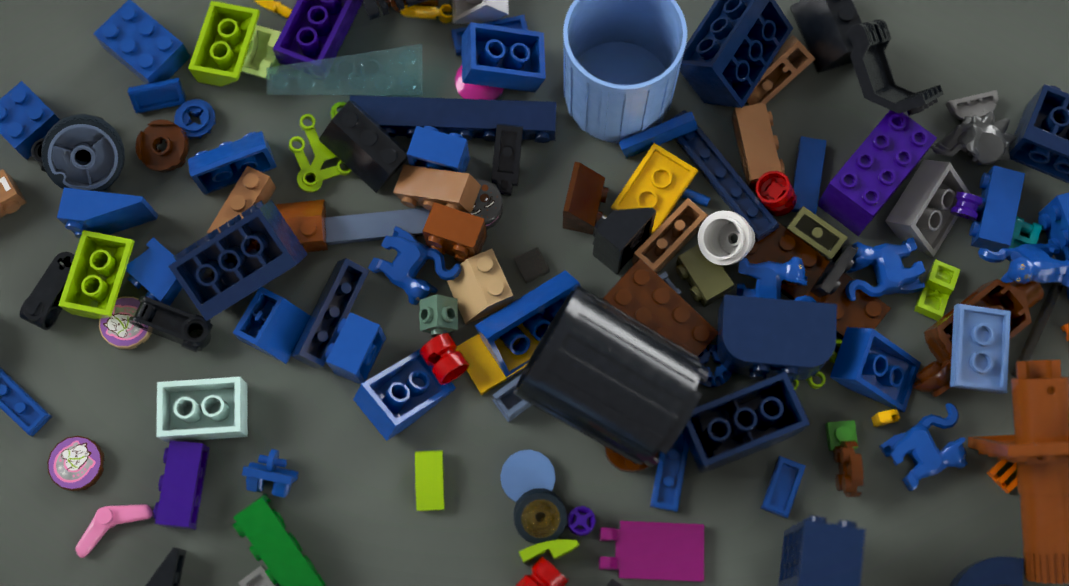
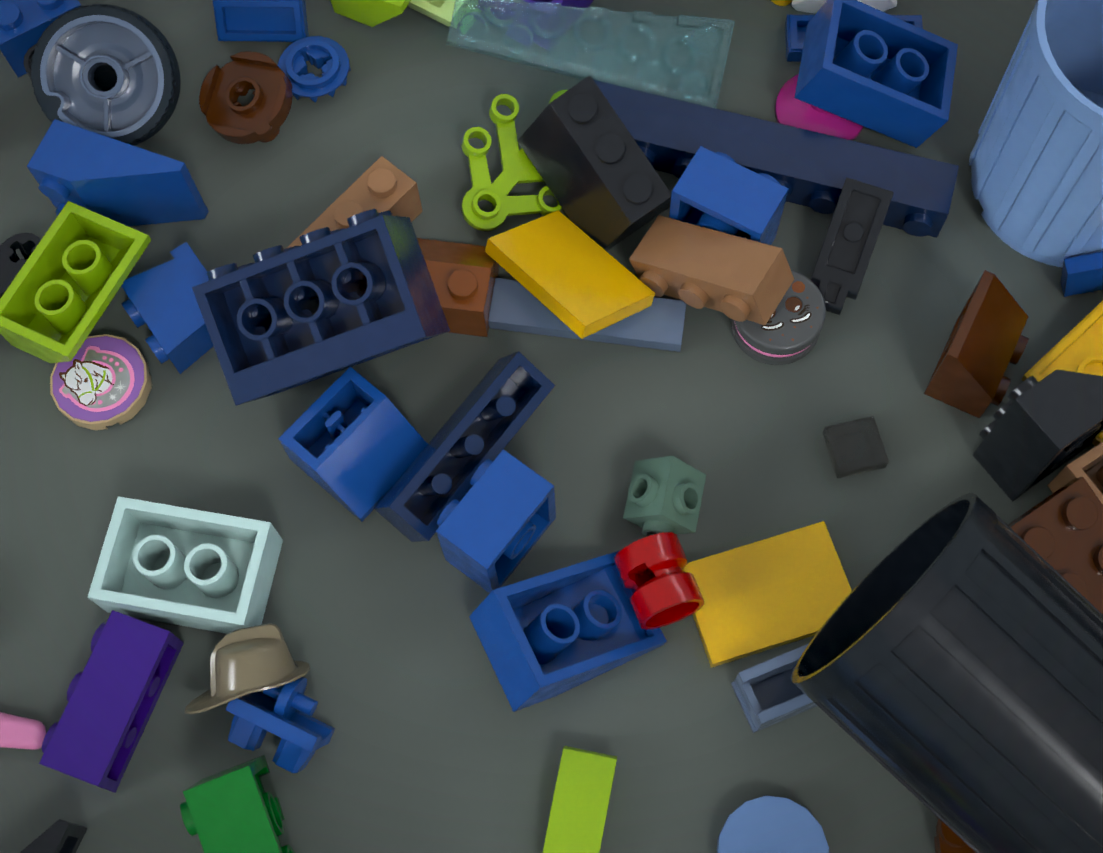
camera: 15 degrees right, 5 degrees down
(171, 323) = (177, 400): black piece -> none
(225, 164) = (338, 150): blue slope -> none
(247, 449) = (248, 663): none -> dark tan piece
(363, 207) = (569, 273): none -> yellow tile
(408, 262) = (629, 389): blue animal -> none
(454, 232) = (727, 354): dark orange brick -> none
(480, 287) = (753, 463): tan slope -> none
(533, 310) = (851, 536): blue slope -> none

